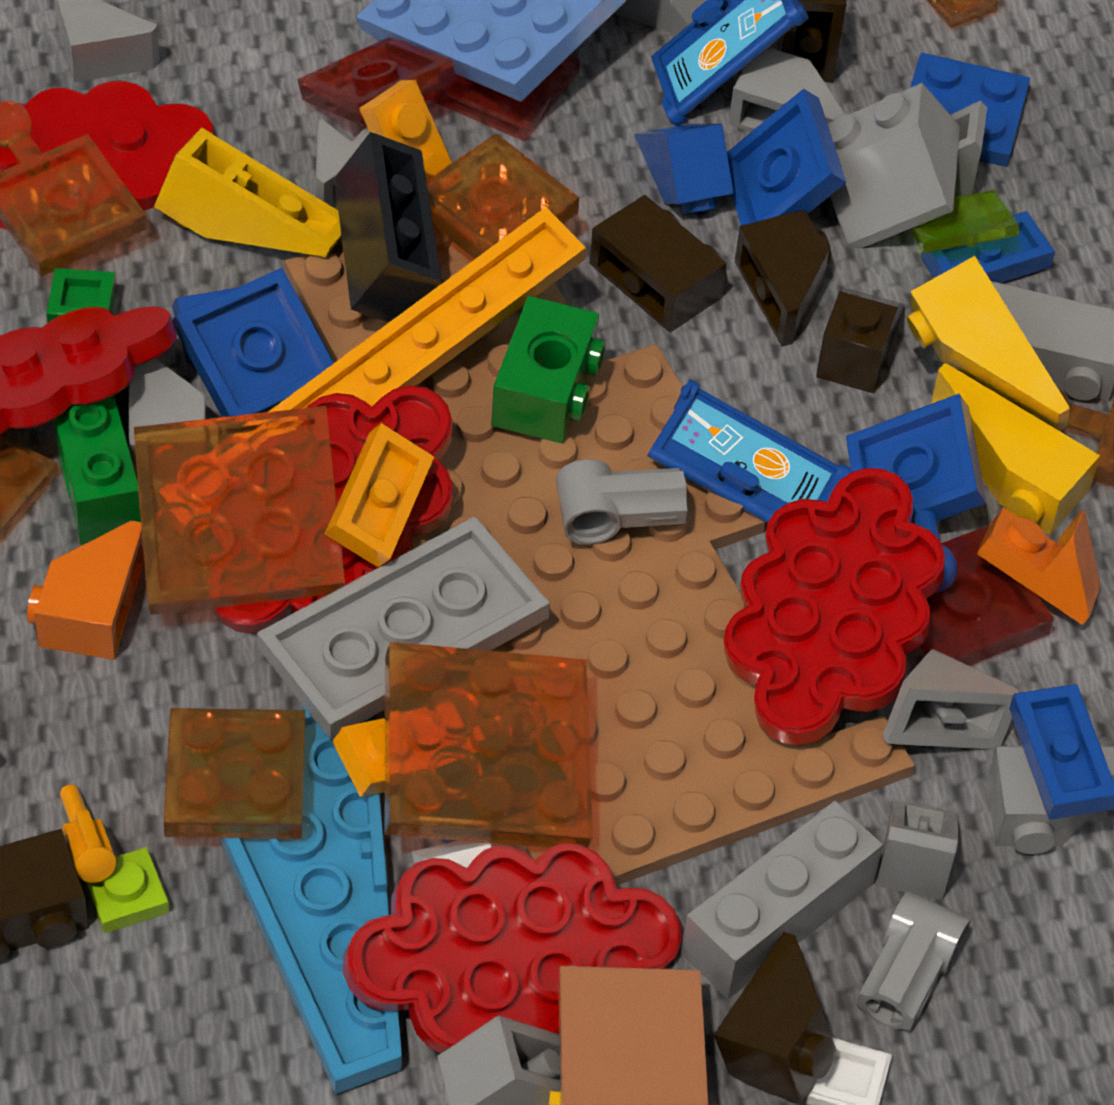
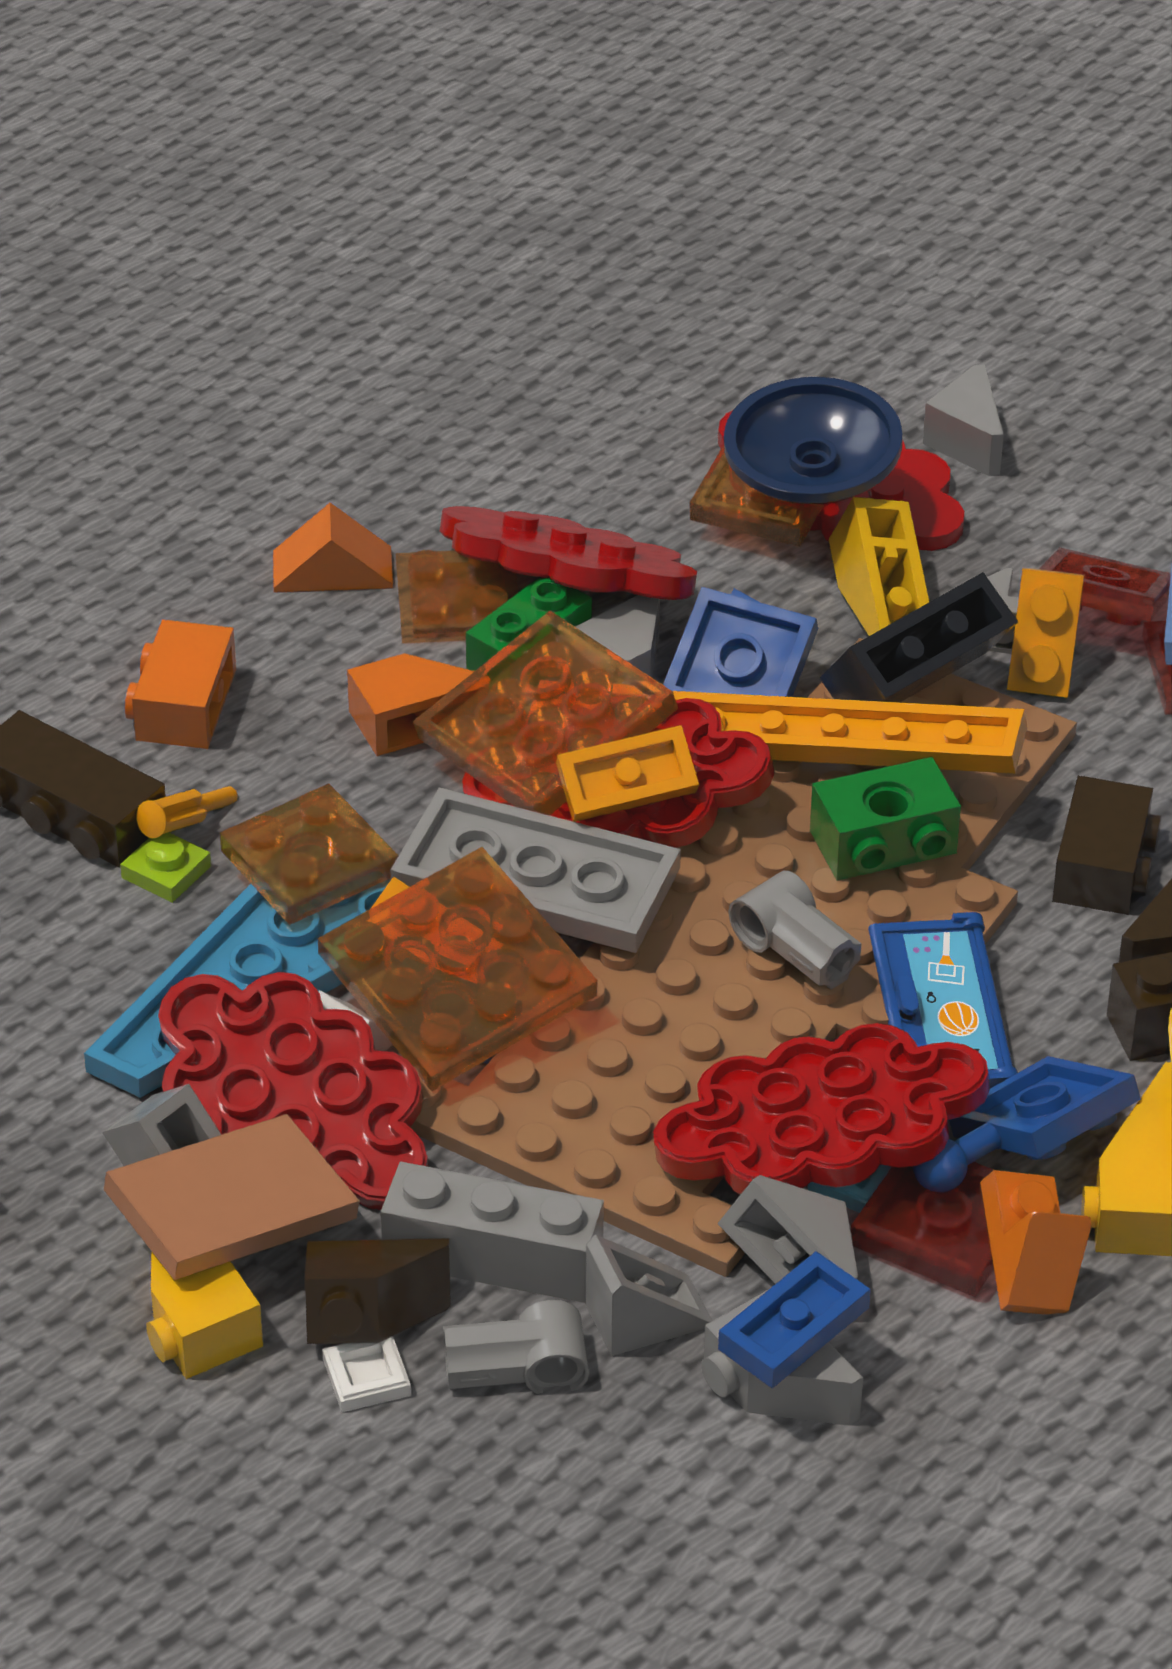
camera: 60 degrees right, 10 degrees down
(80, 289) = (701, 550): green plate -> none
(87, 115) = (813, 440): none -> dark blue dish
(493, 194) = (1058, 699): clear orange plate -> none

